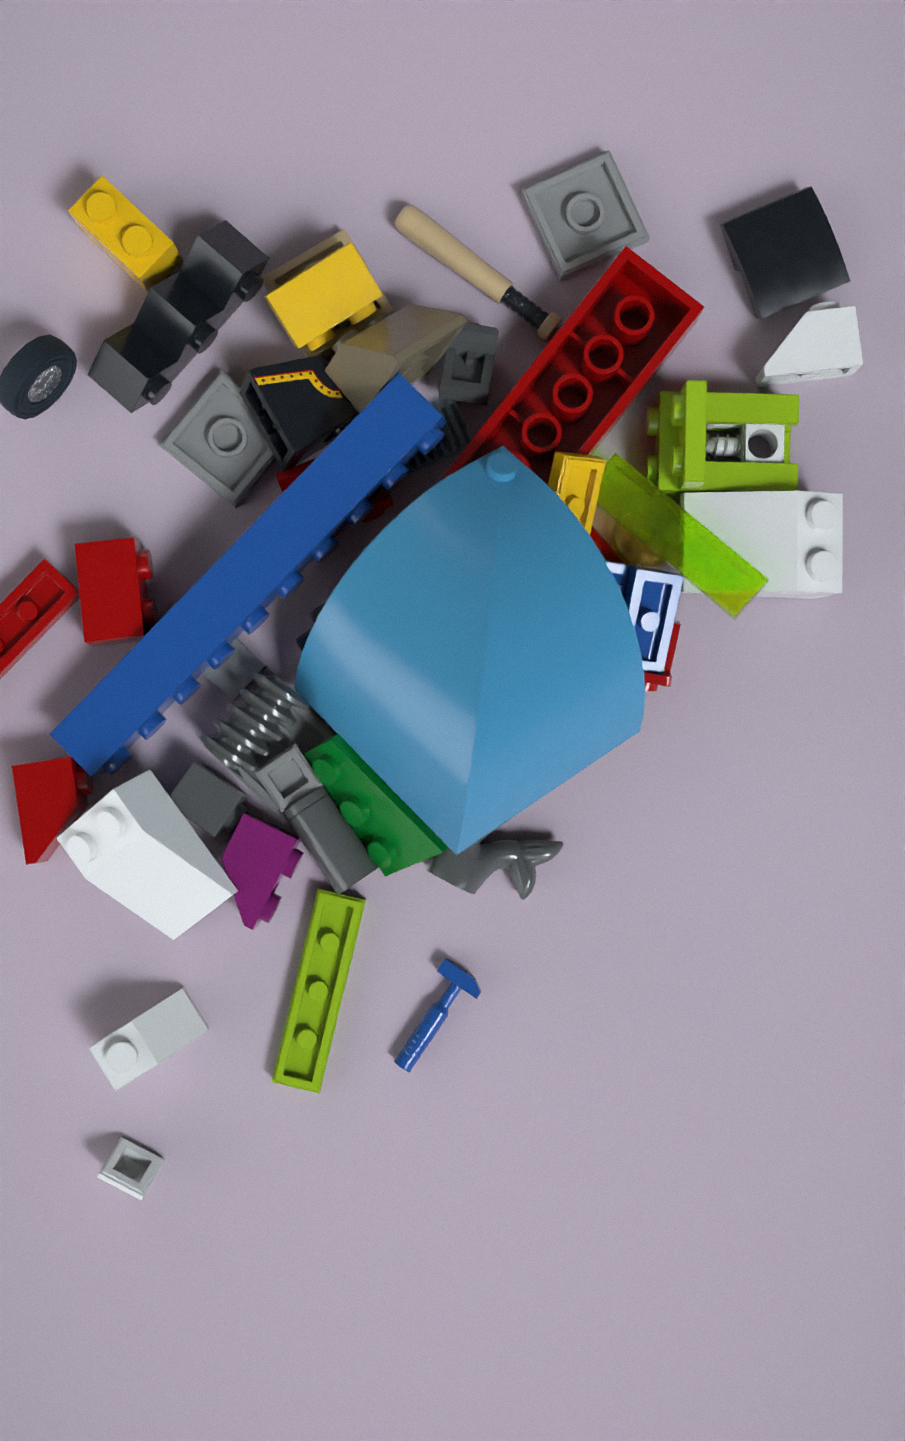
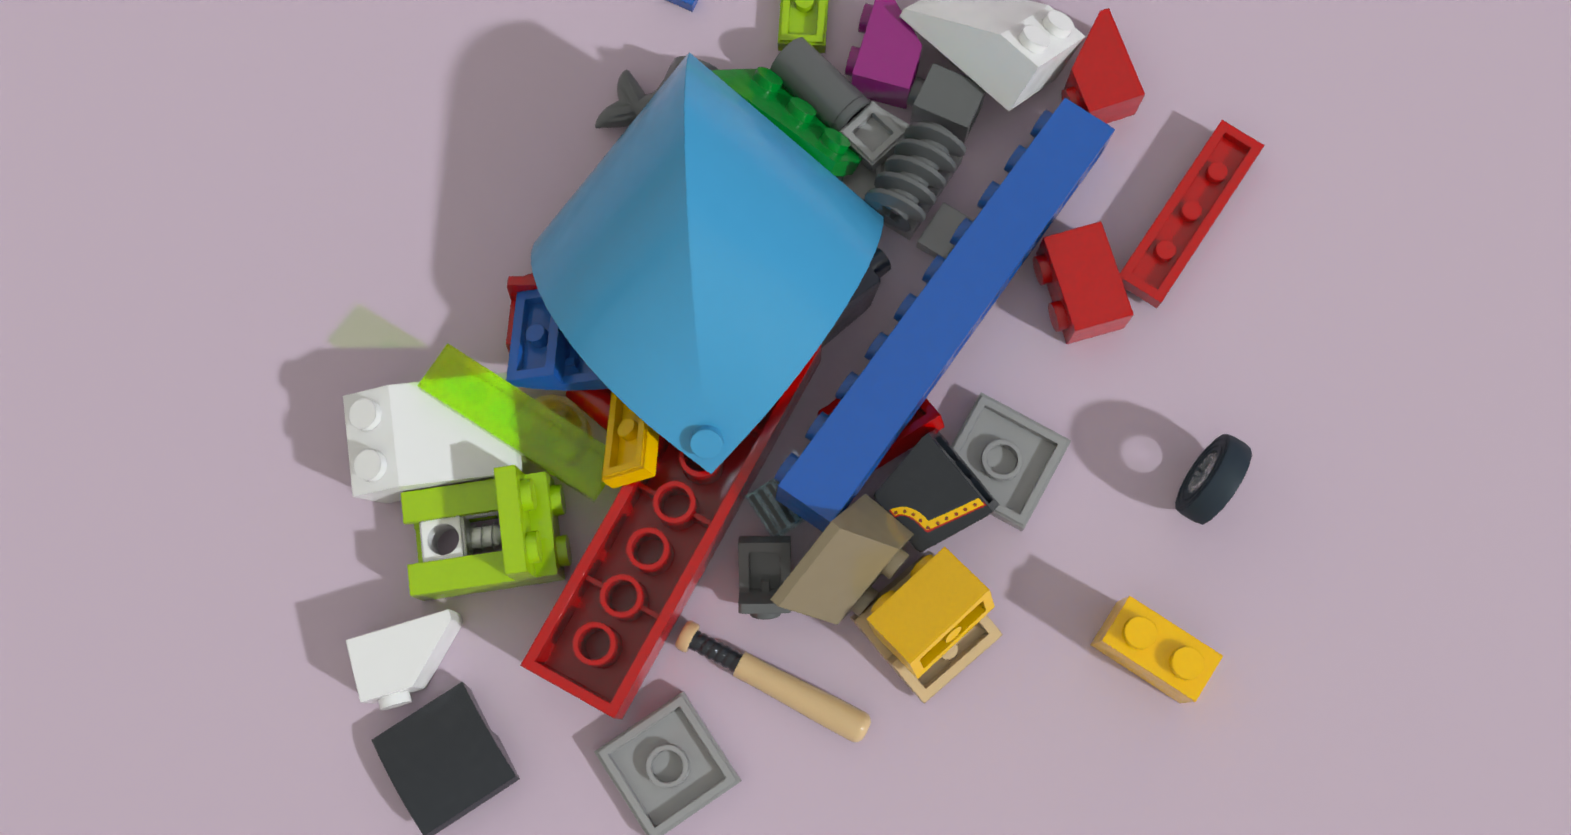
camera: 175 degrees right, 10 degrees down
(180, 318) = (1077, 571): black brick -> none

